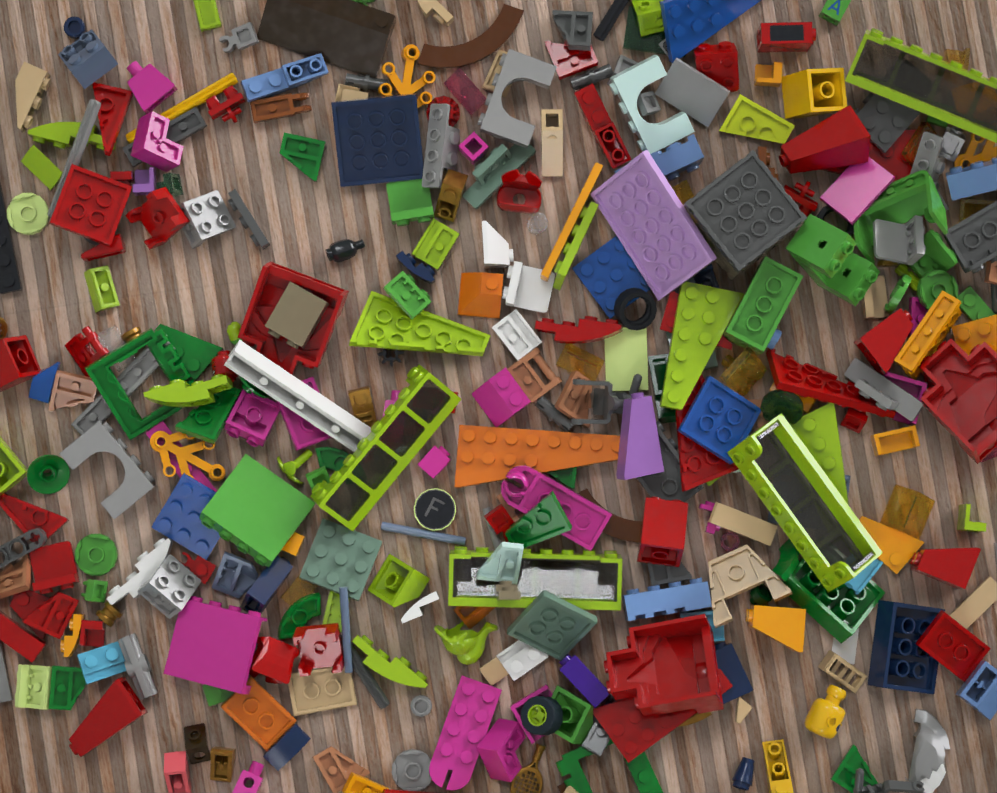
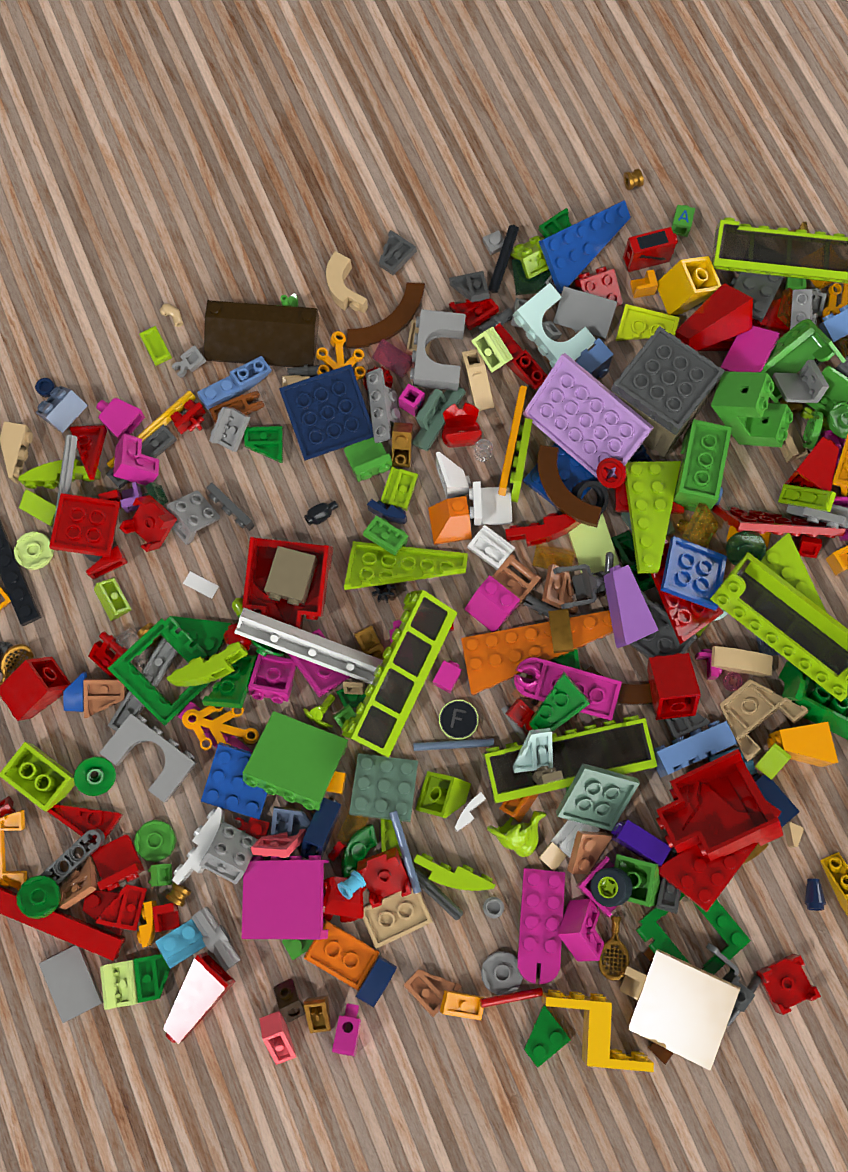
camera: 10 degrees left, 10 degrees down
(198, 296) = (201, 584): none -> white sticker
(220, 591) = (278, 845): none -> coral wing
(268, 131) = (229, 428): none -> light grey bracket
(278, 610) = (337, 849): none -> red tile
(284, 649) = (351, 885): none -> medium azure bush
(334, 448) = (353, 687): none -> tan slope
(529, 674) = (587, 850): none -> nougat wing
(563, 446) = (561, 631): none -> pearl gold slope
(575, 115) = (492, 349): none -> yellowish green brick
(601, 293) = (559, 494): none -> reddish brown tile
(656, 285) = (603, 472): none -> red gear
(739, 634) = (773, 761): none -> lime slope
(760, 595) = (776, 722): dark green tile -> none
(864, 368) = (807, 497): none -> lime tile

